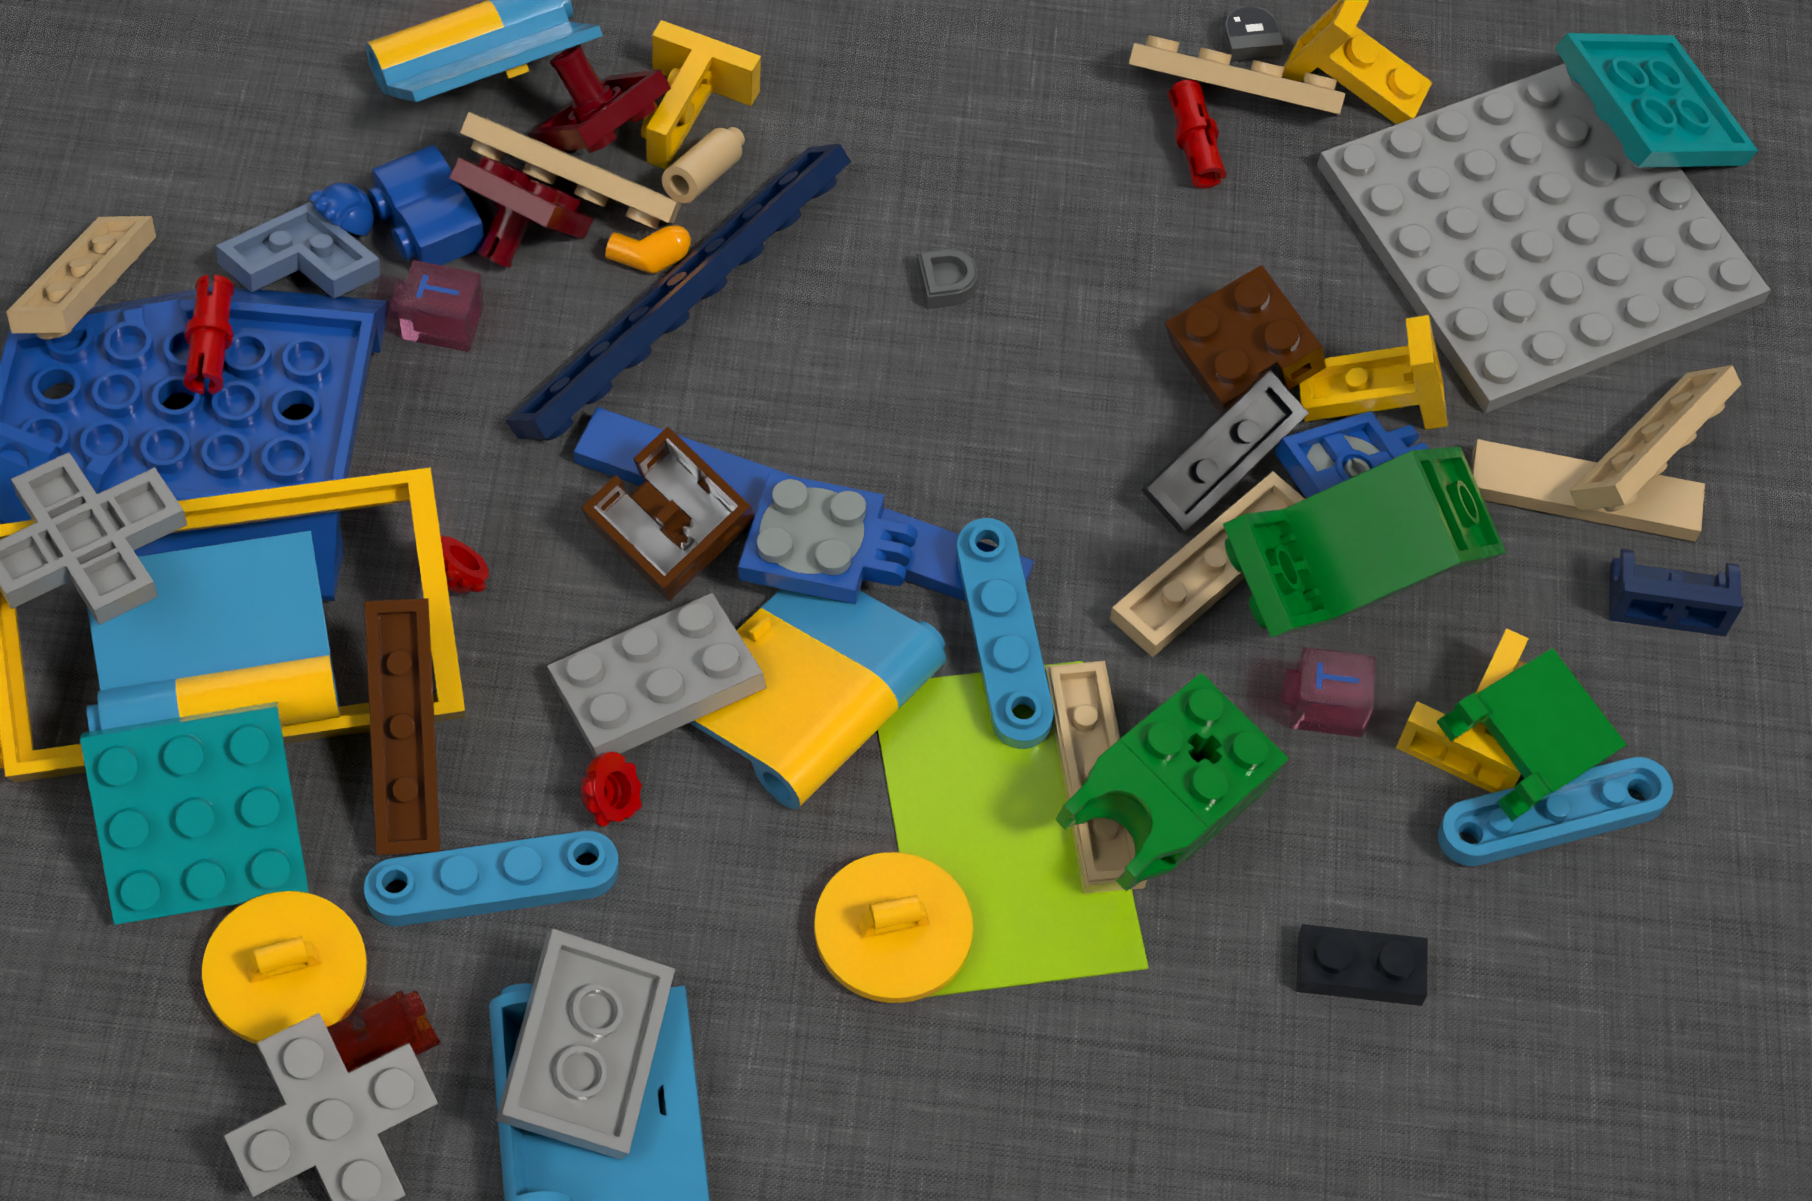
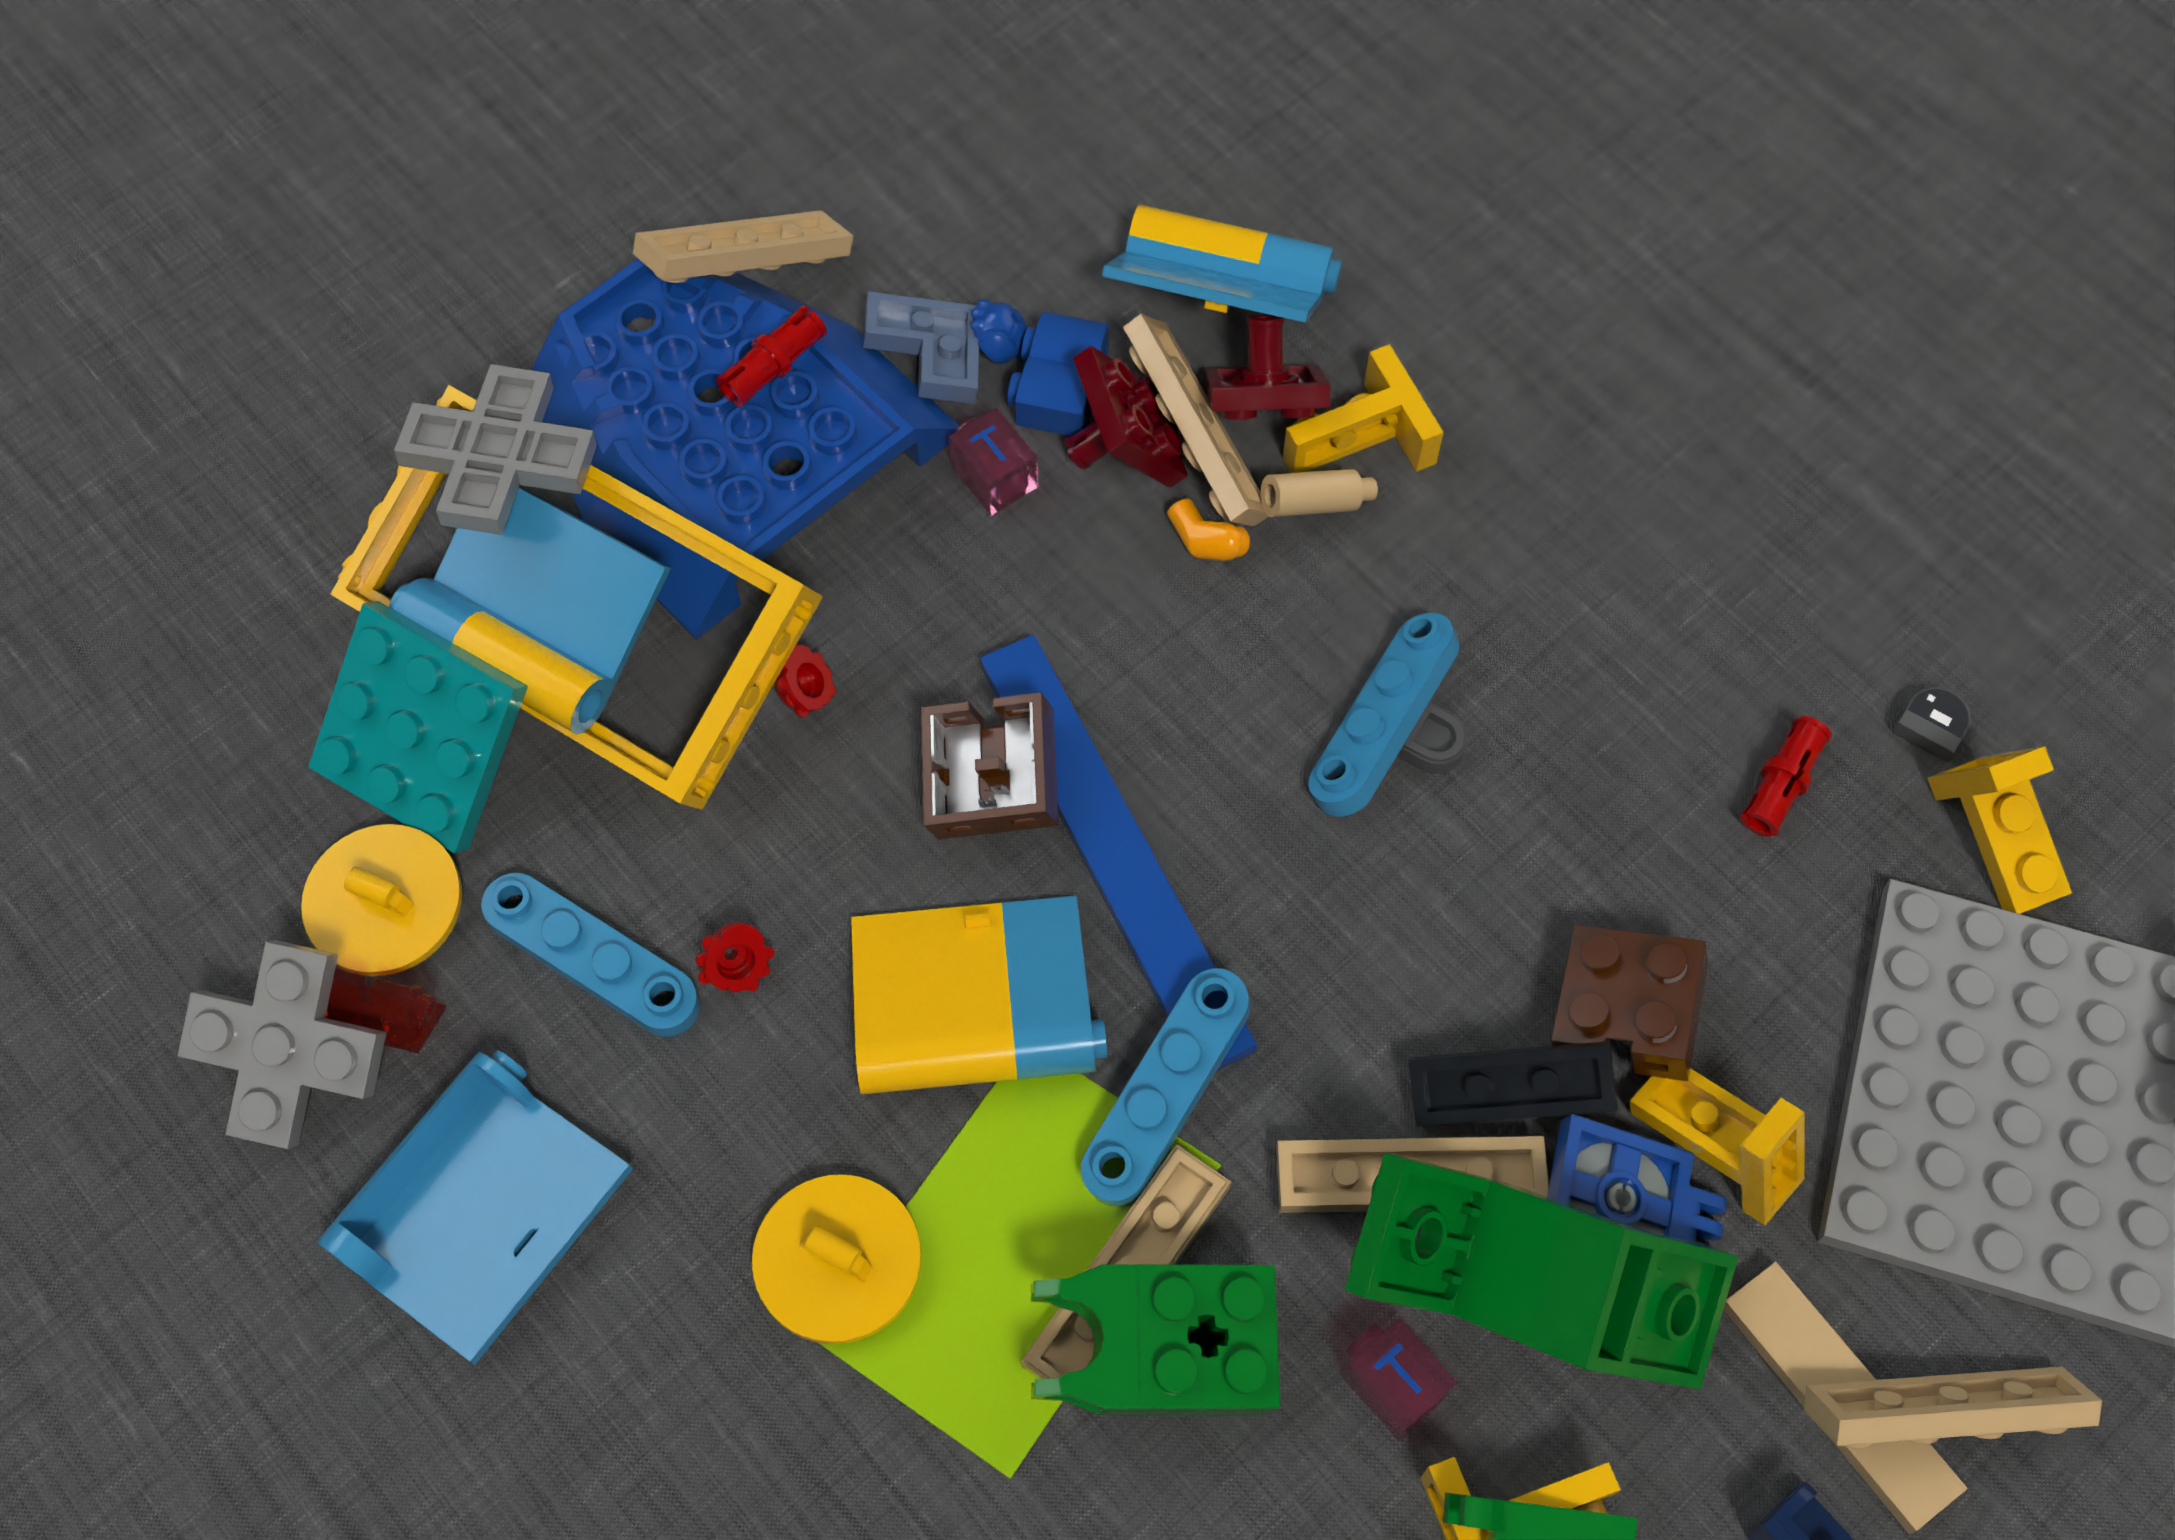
camera: 50 degrees right, 5 degrees up
(402, 726) = (615, 777): reddish brown plate -> none
(586, 1044) = (497, 1148): light grey plate -> none
(656, 676) = (856, 894): light grey plate -> none
(668, 302) = (1219, 585): dark blue plate -> none
(823, 540) = (1091, 885): piece -> none
(900, 282) = (1384, 714): none -> dark azure plate
(1215, 69) = (1892, 771): tan plate -> none

